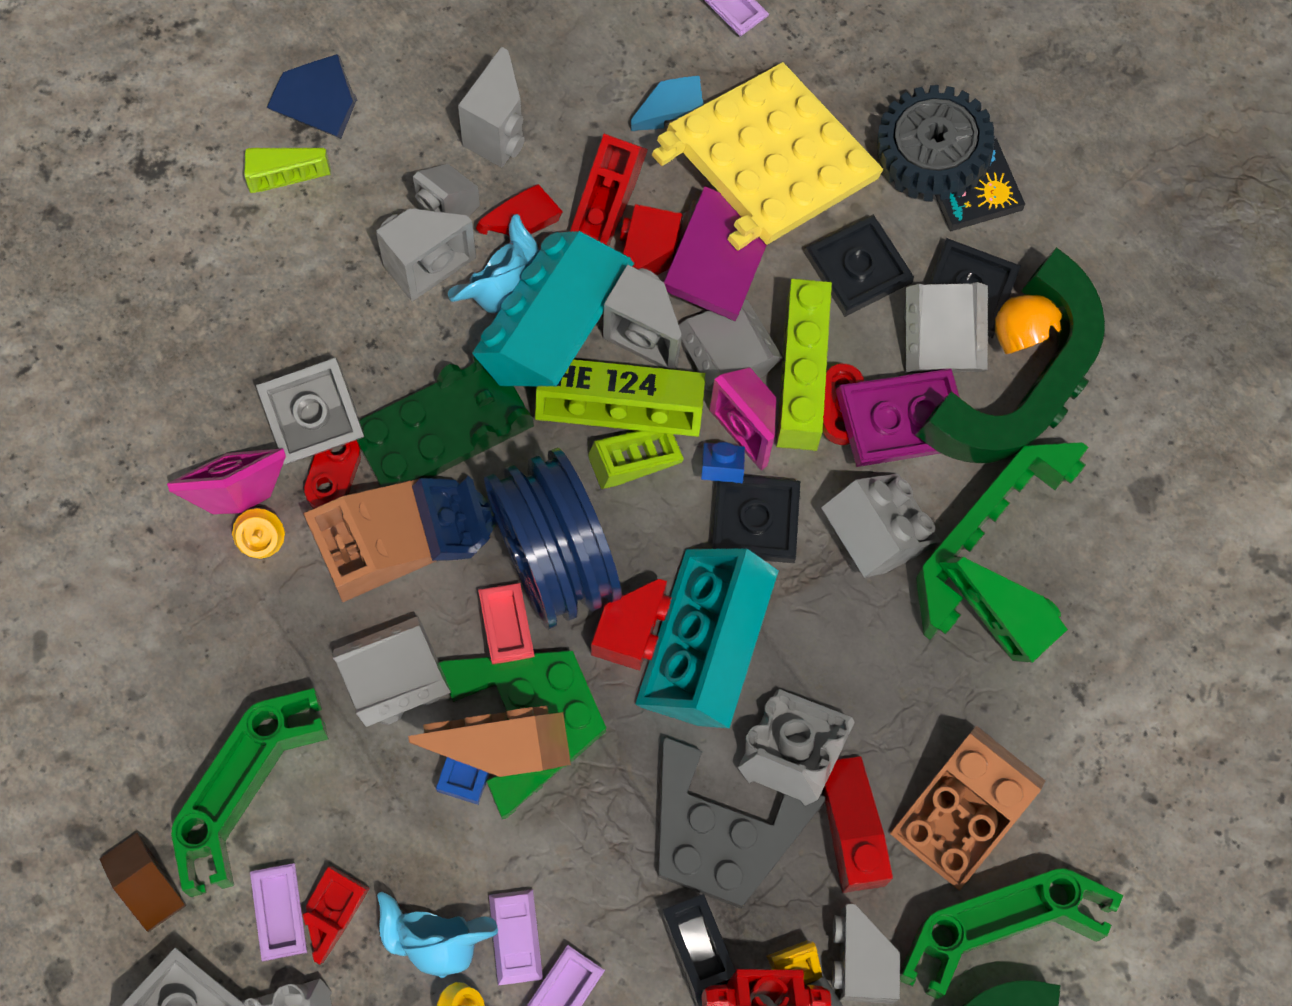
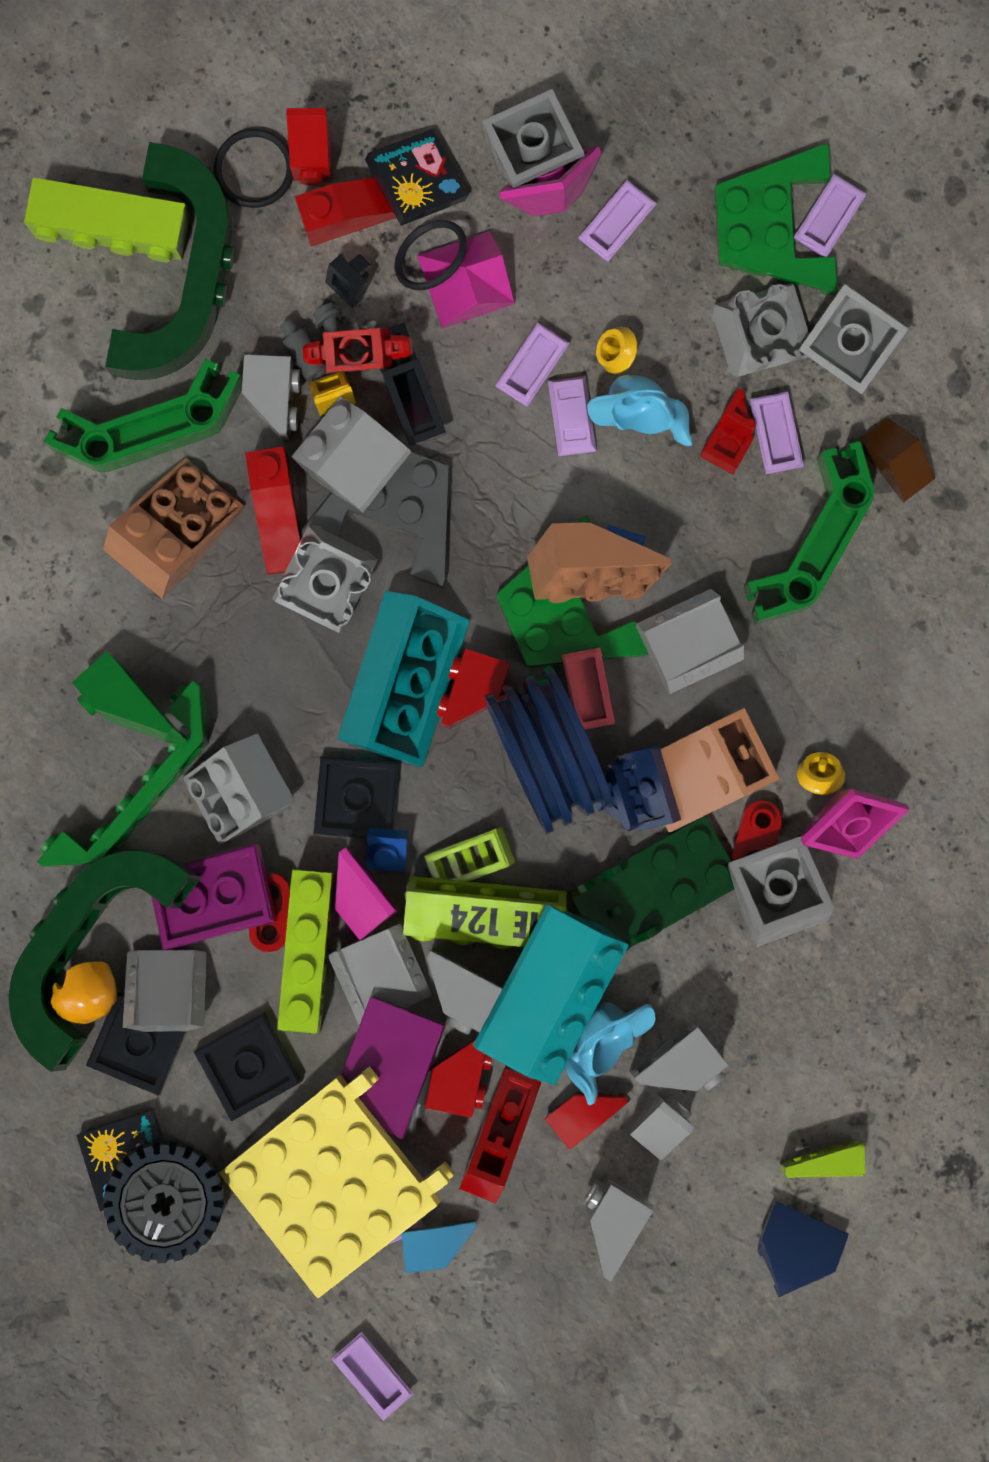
camera: 175 degrees left, 15 degrees up
(770, 879) = (351, 454): none -> light grey slope

